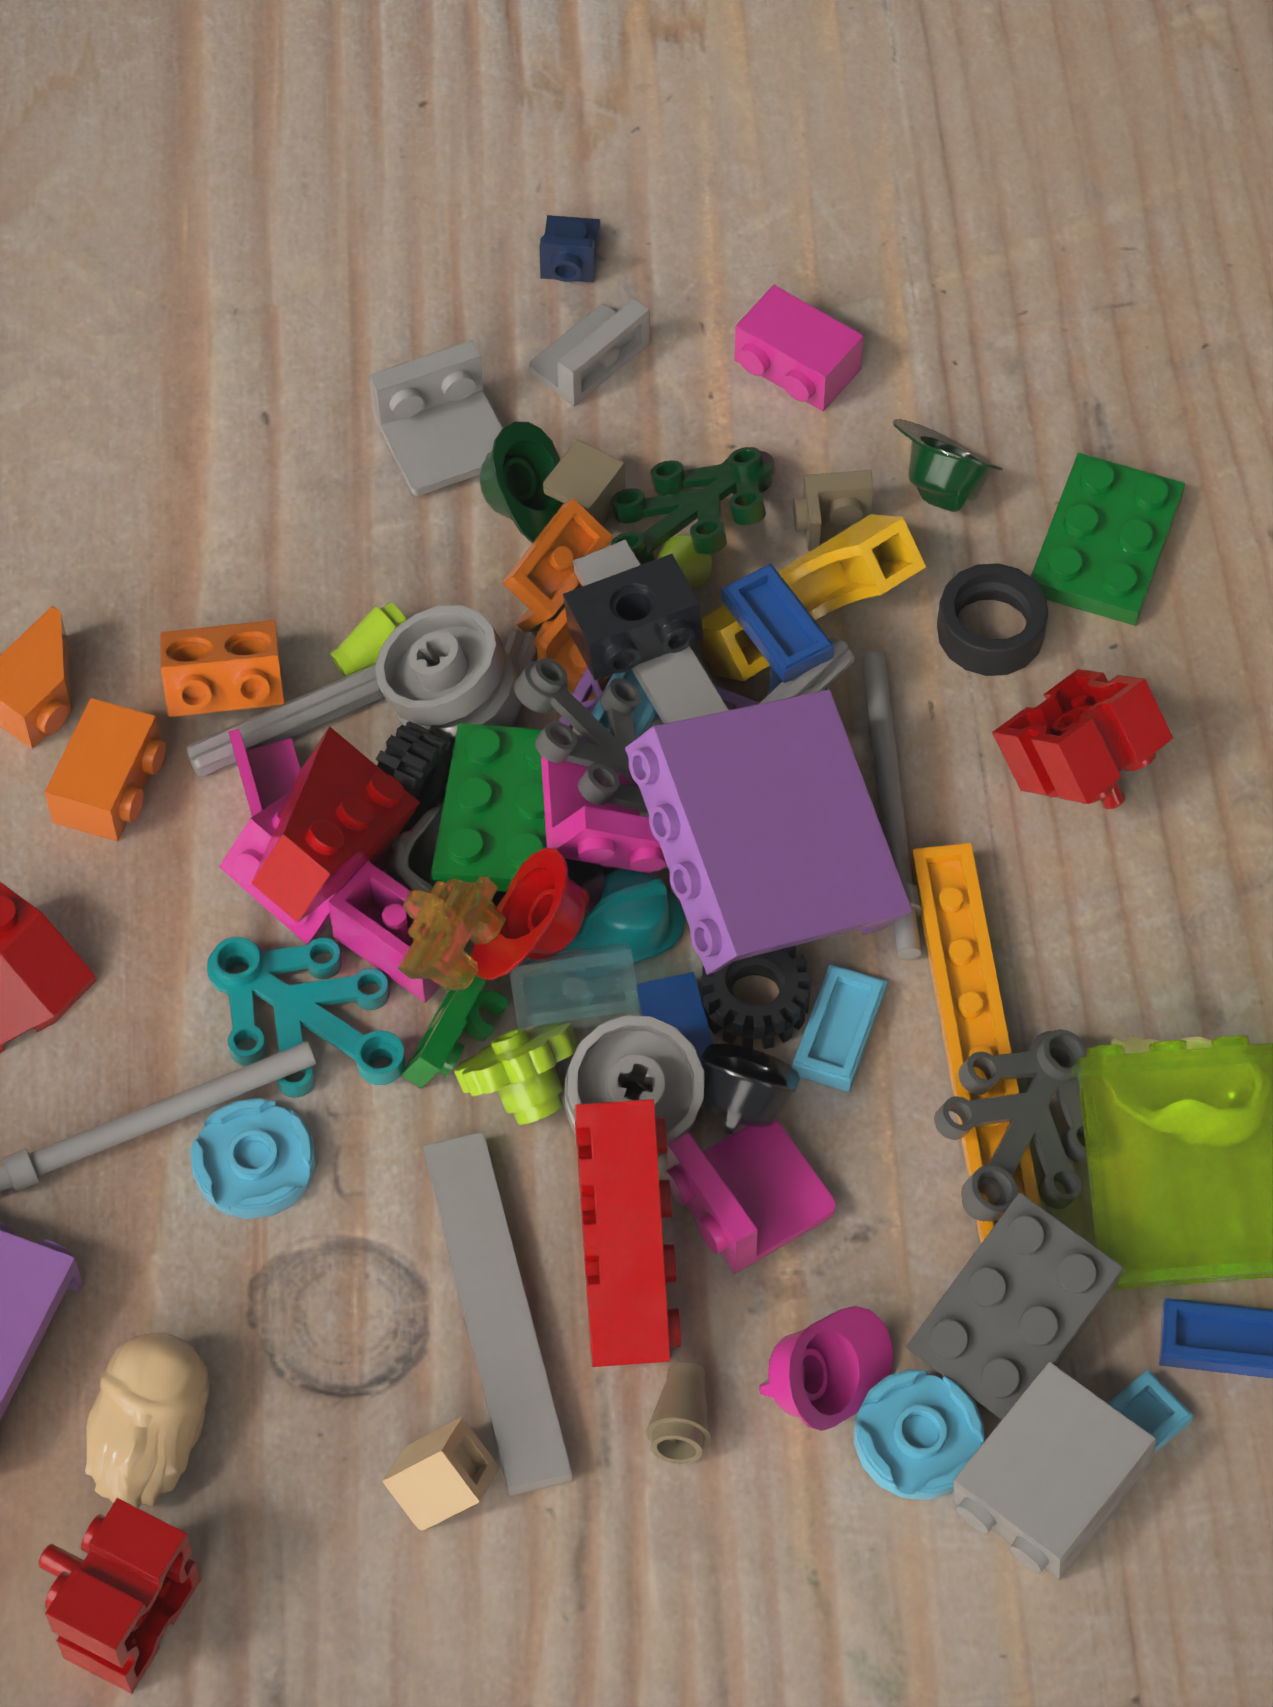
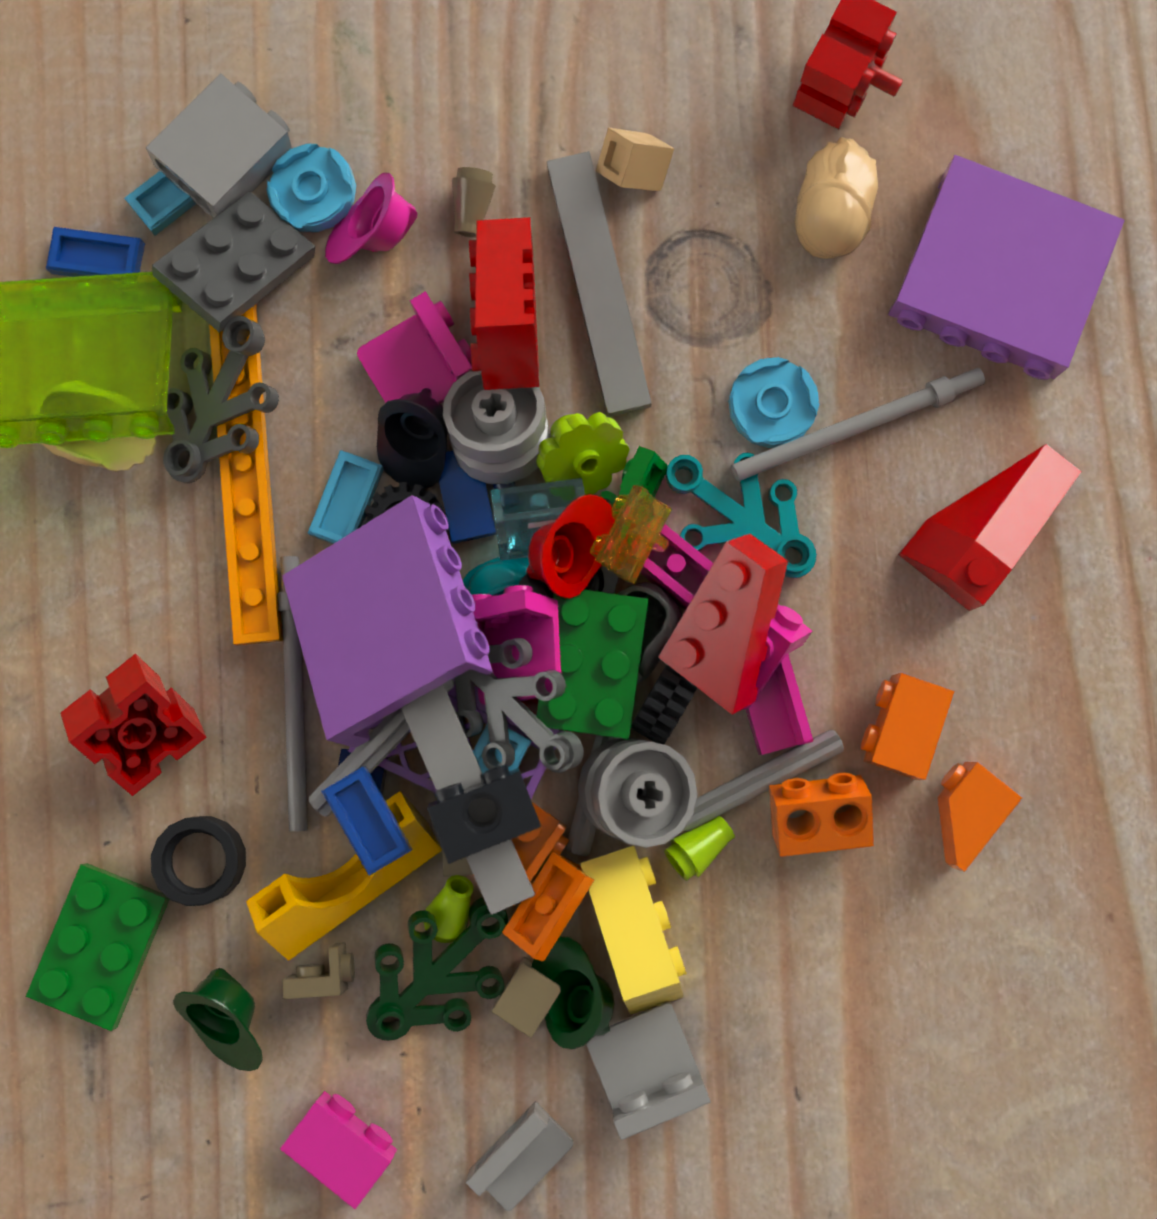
camera: 175 degrees left, 25 degrees up
(455, 538) = (634, 929): none -> light yellow wedge

